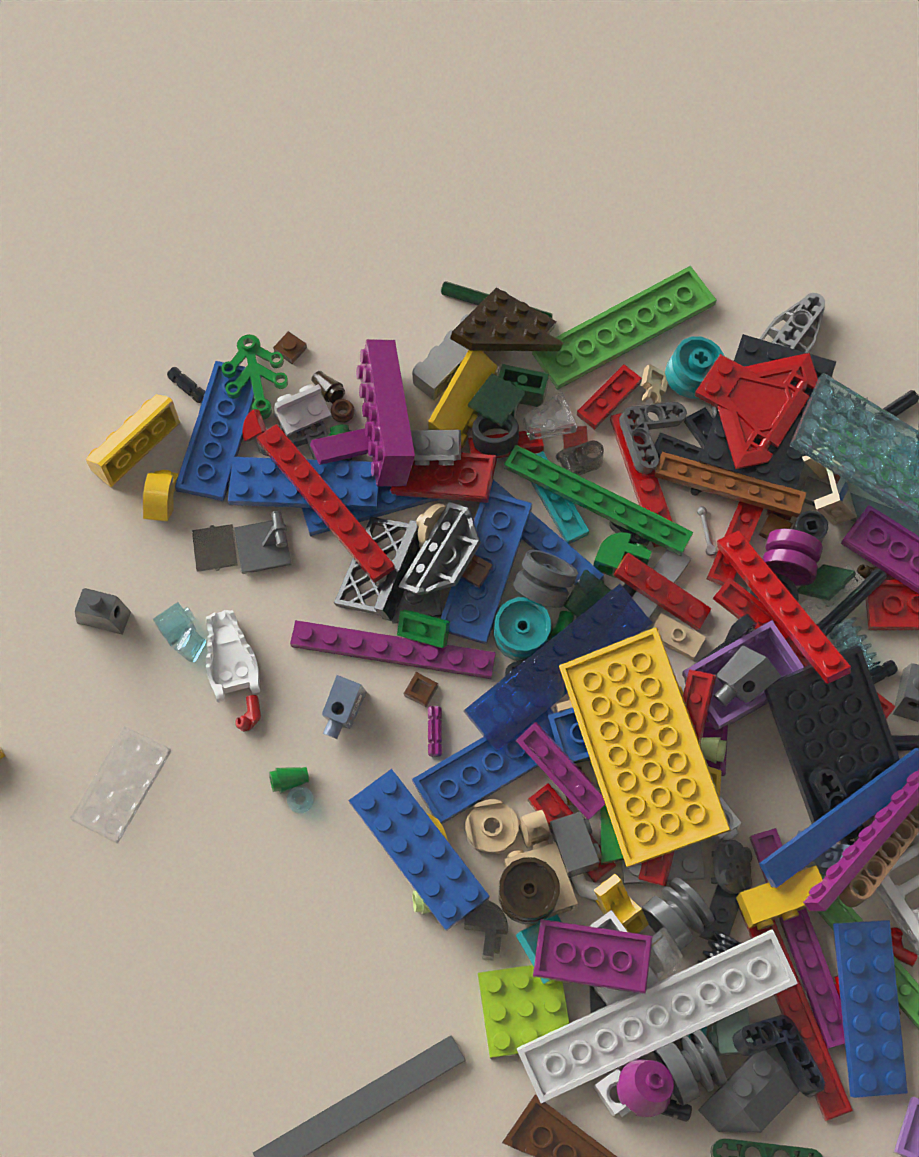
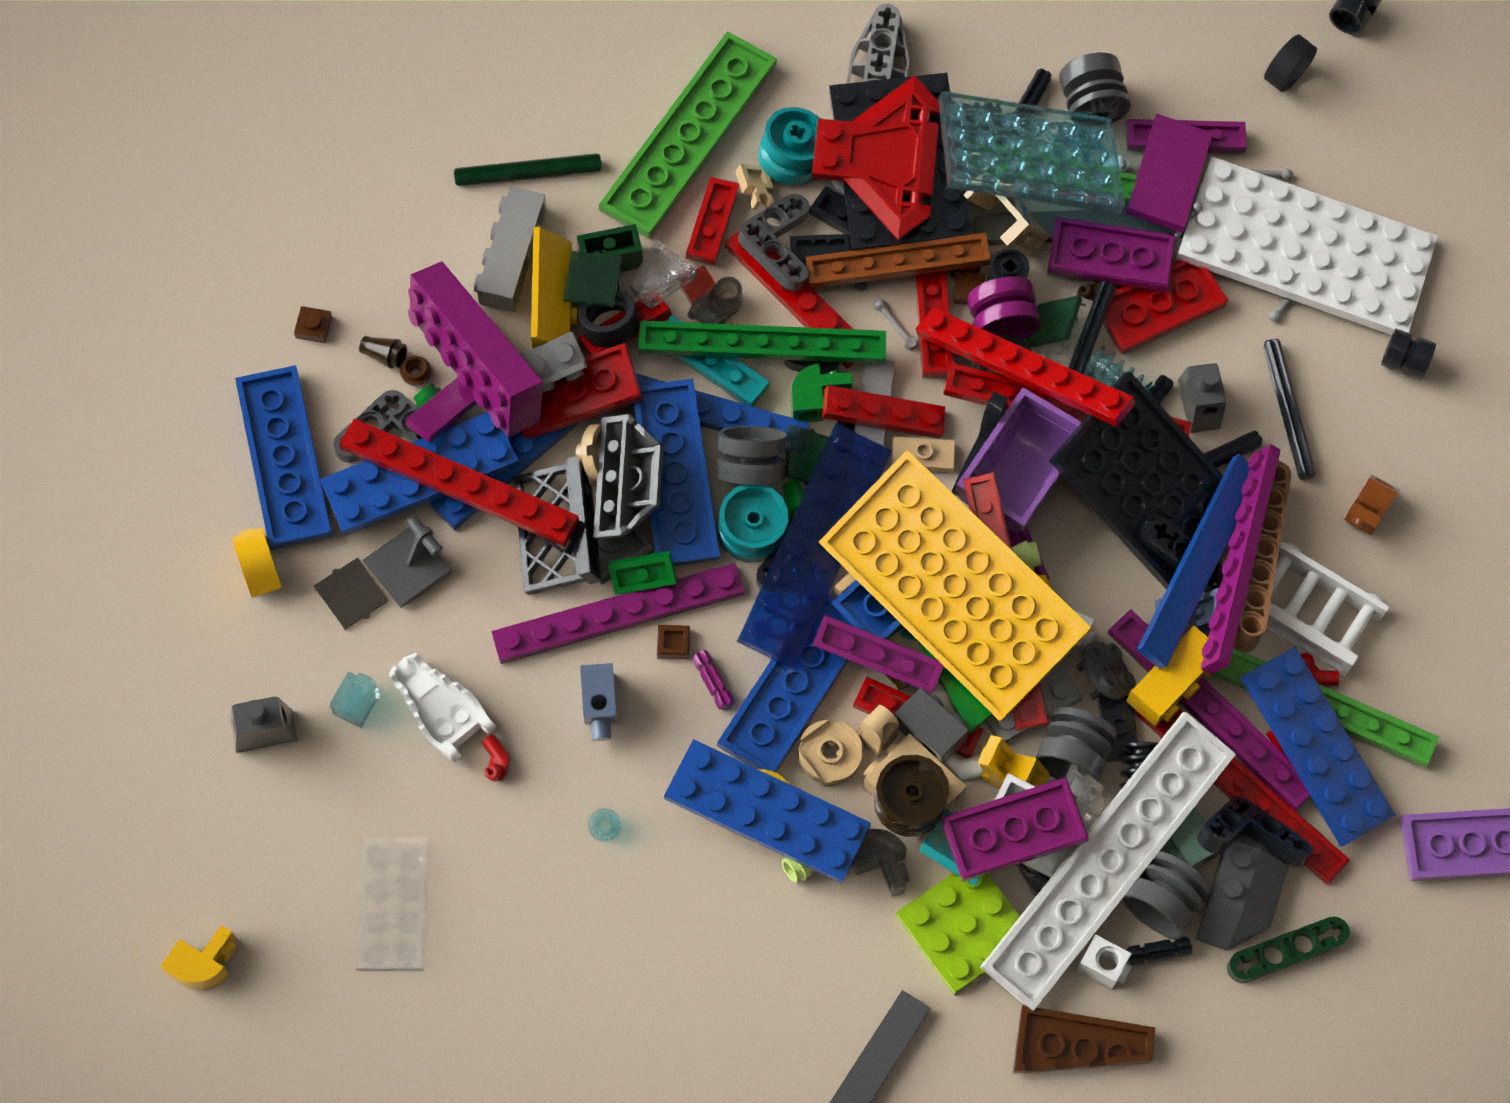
camera: 30 degrees left, 0 degrees up
(133, 439) = (188, 511): yellow slope -> none
(186, 384) = (213, 421): black axle -> none
(190, 644) = (386, 713): clear light blue tile -> none
(253, 425) = (323, 433): red tile -> none
(254, 371) = (290, 370): green plant -> none
(288, 778) = (577, 808): green cone -> none
(301, 409) = (372, 390): white bracket -> none
(477, 571) = (673, 481): reddish brown plate -> none
(506, 325) = (559, 189): dark brown wing -> none
(645, 1087) = (1134, 937): magenta cone -> none
(745, 676) = (1026, 459): dark grey torso -> none

